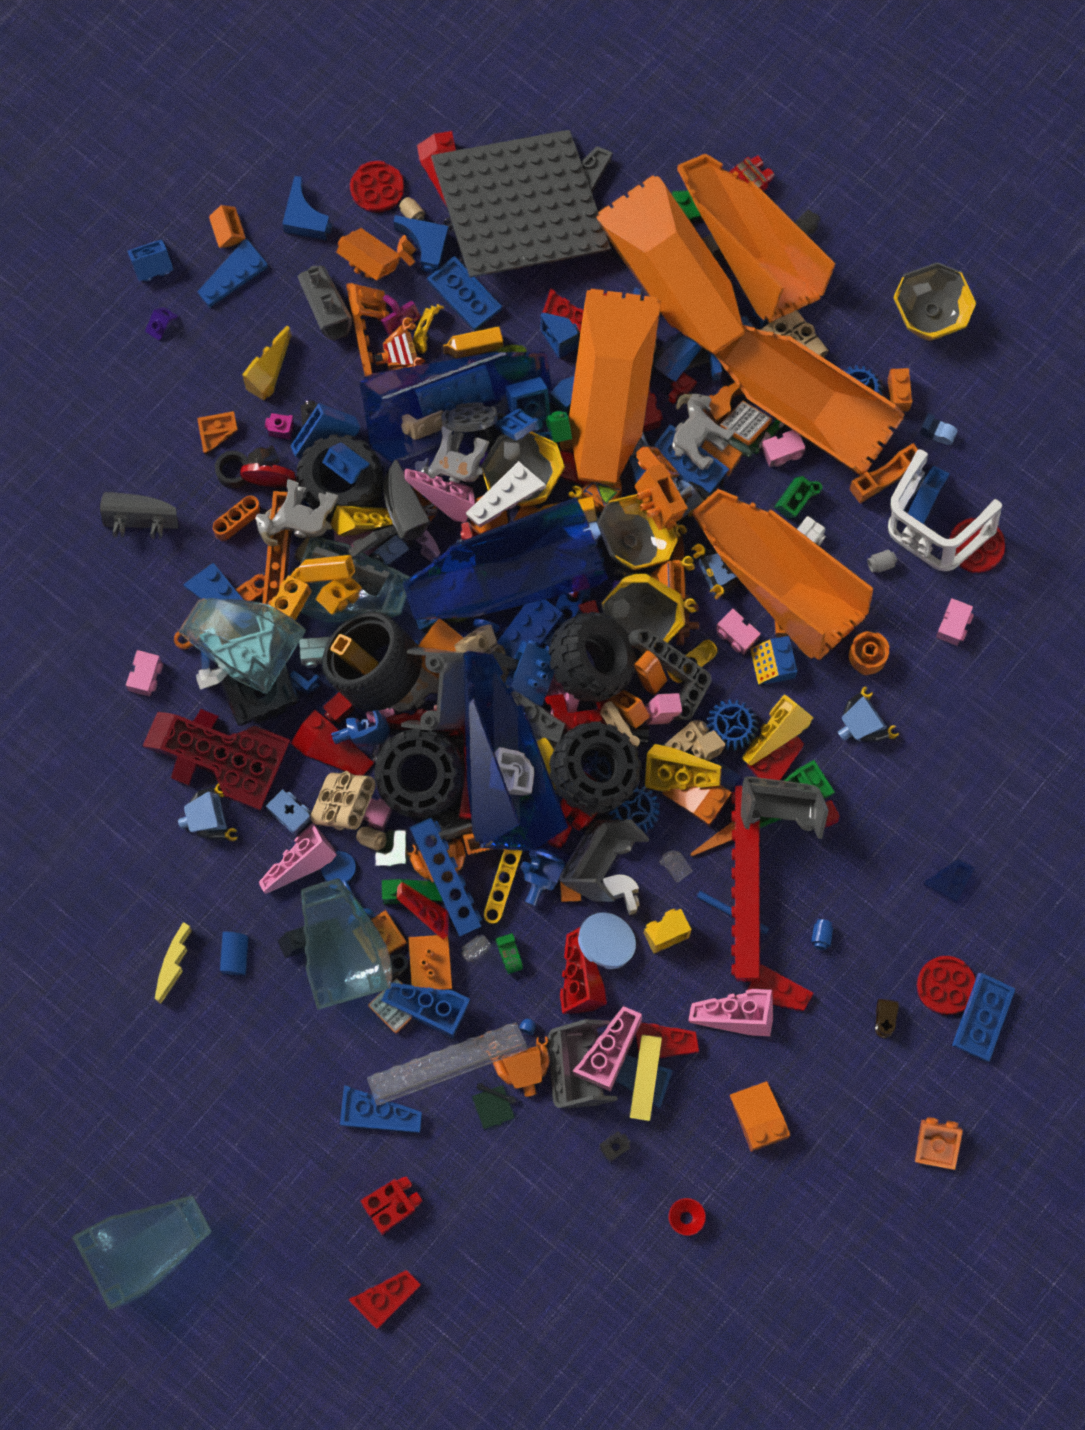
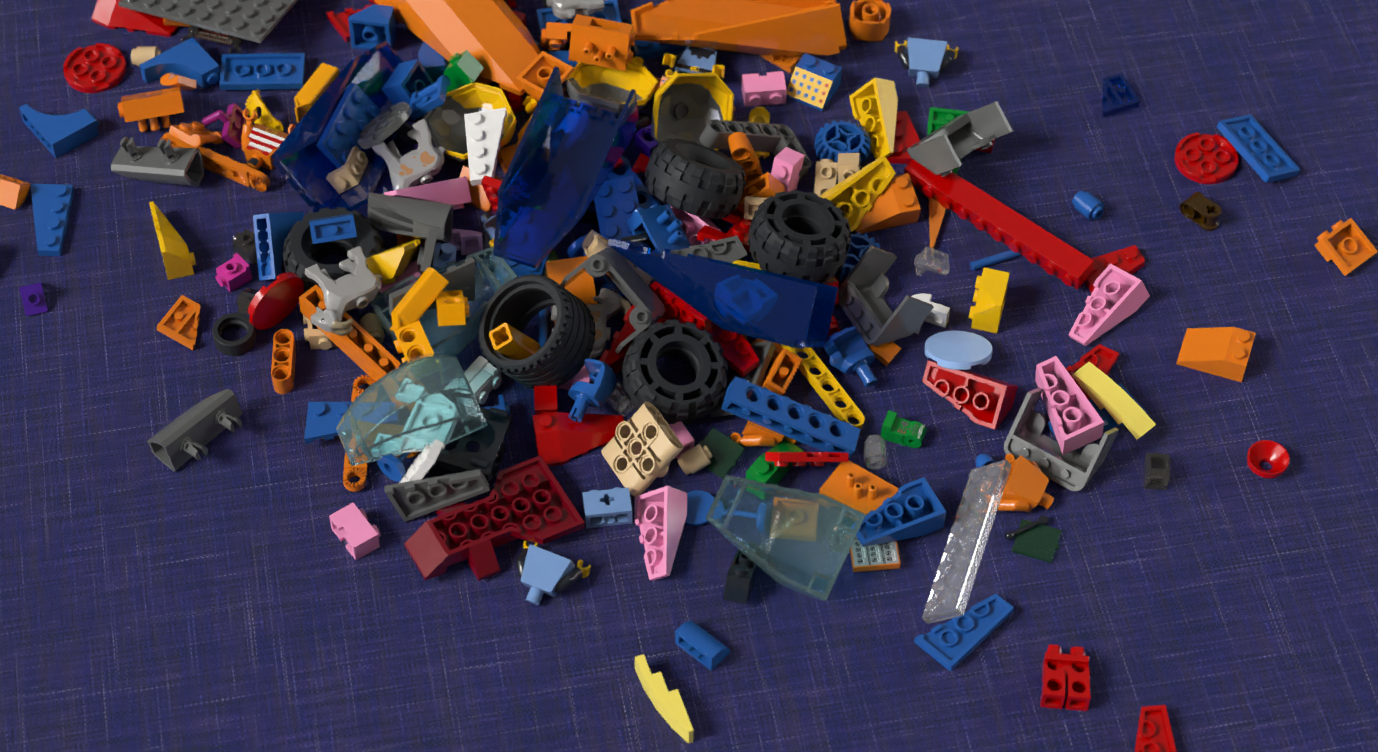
camera: 50 degrees left, 20 degrees down
(203, 701) = (431, 494): none -> dark grey wing
(601, 483) = (537, 73): none -> orange slope

